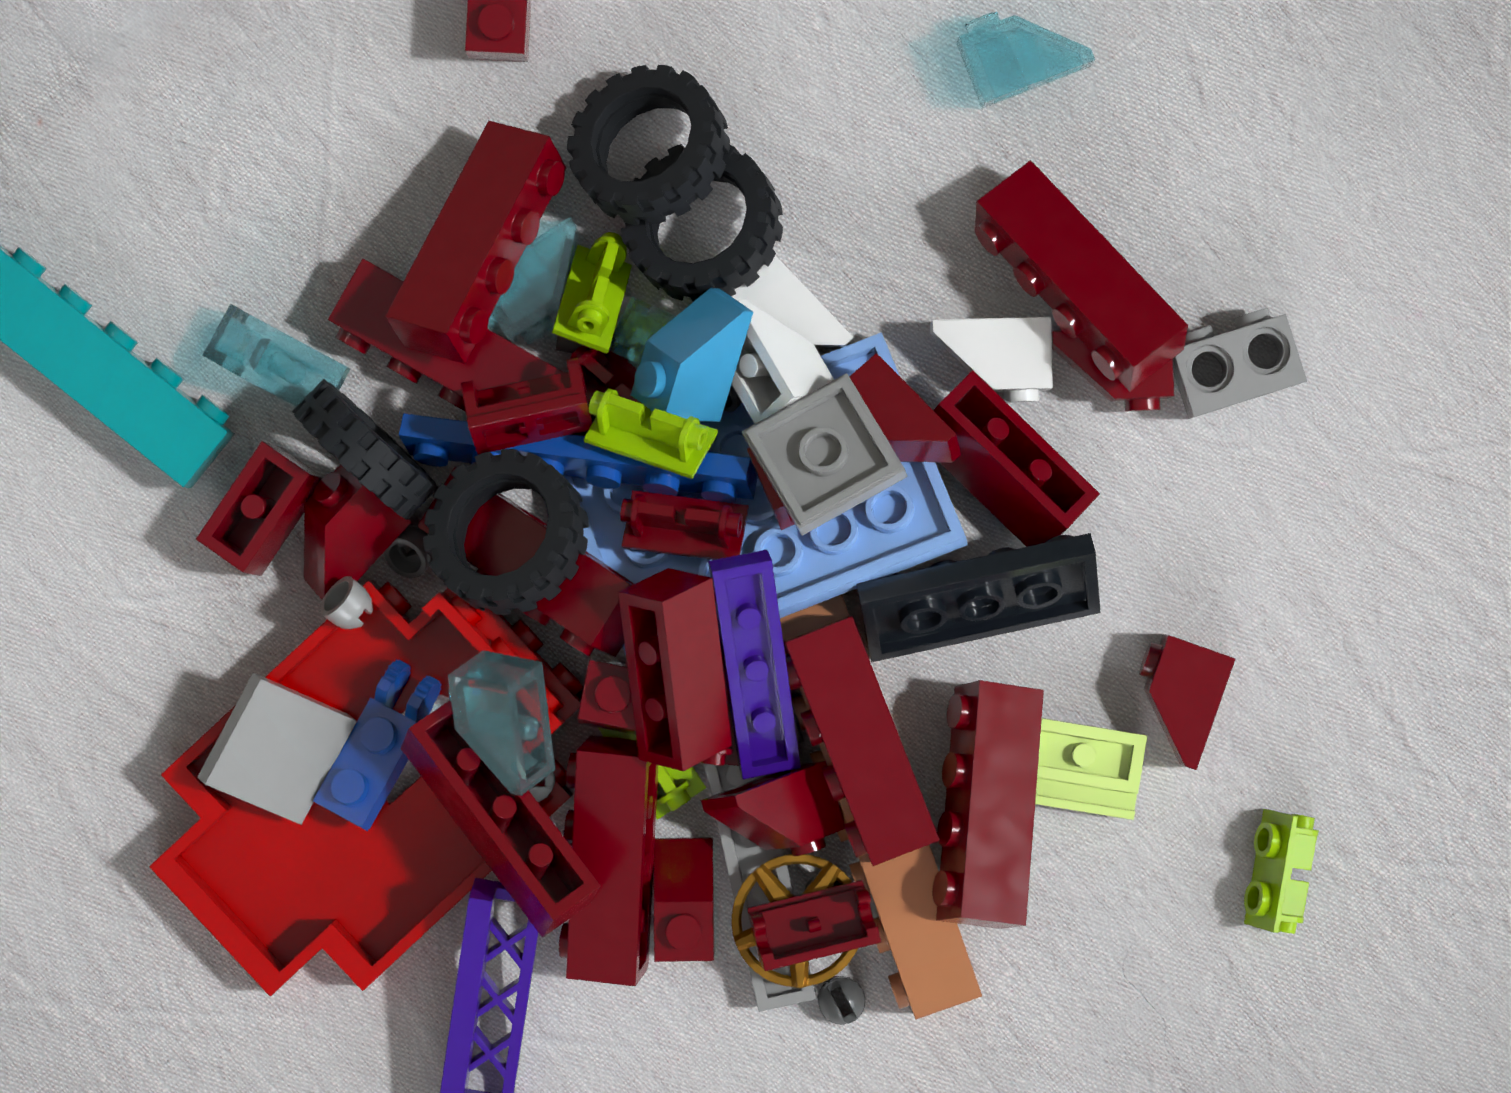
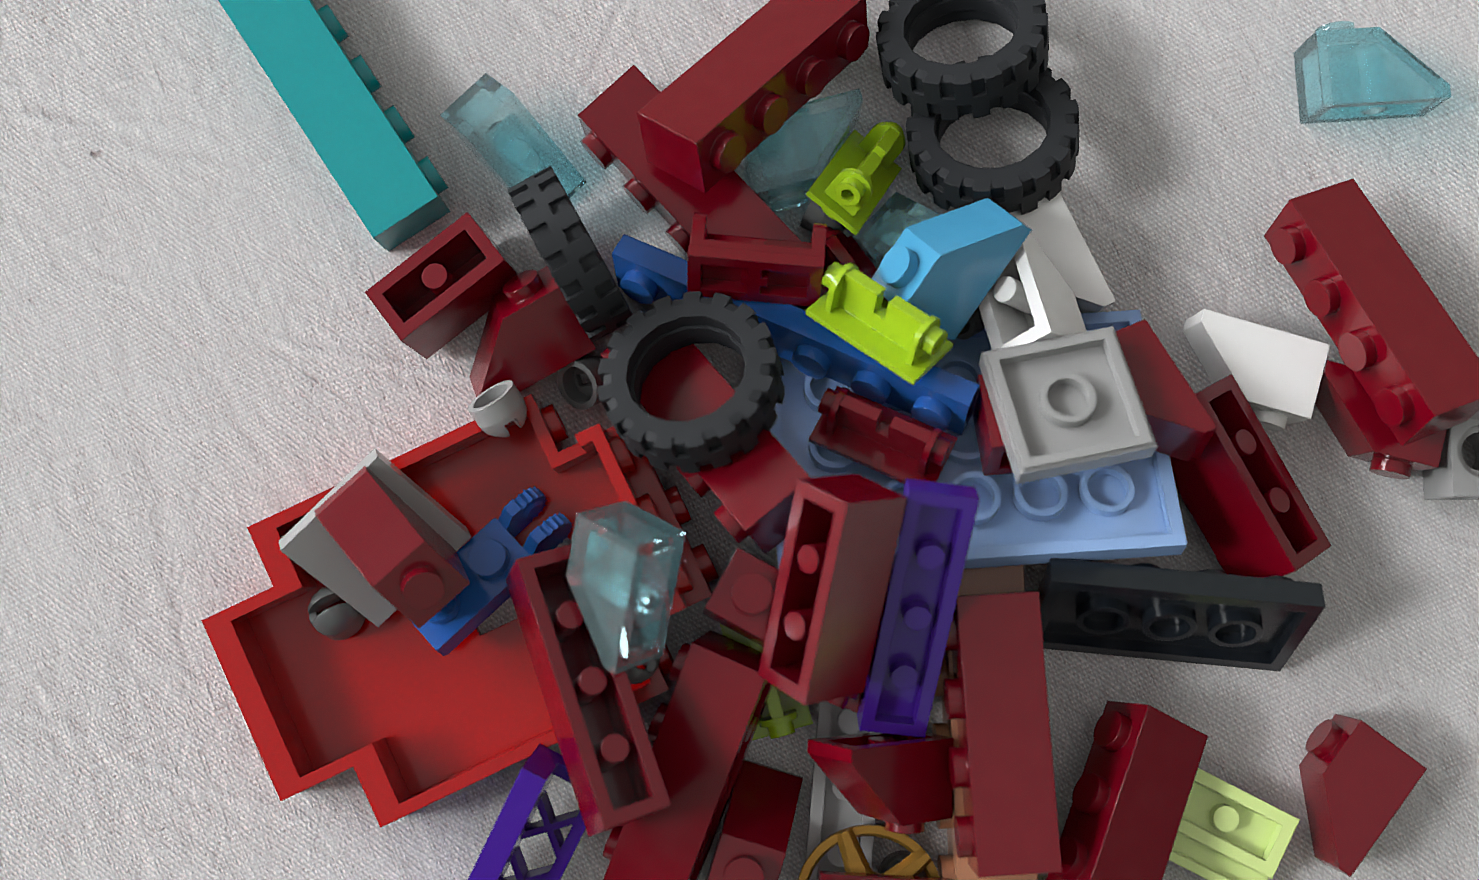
camera: 20 degrees right, 5 degrees down
(263, 832) = (337, 621): none -> dark grey hinge
(299, 750) = (393, 547): none -> dark red slope

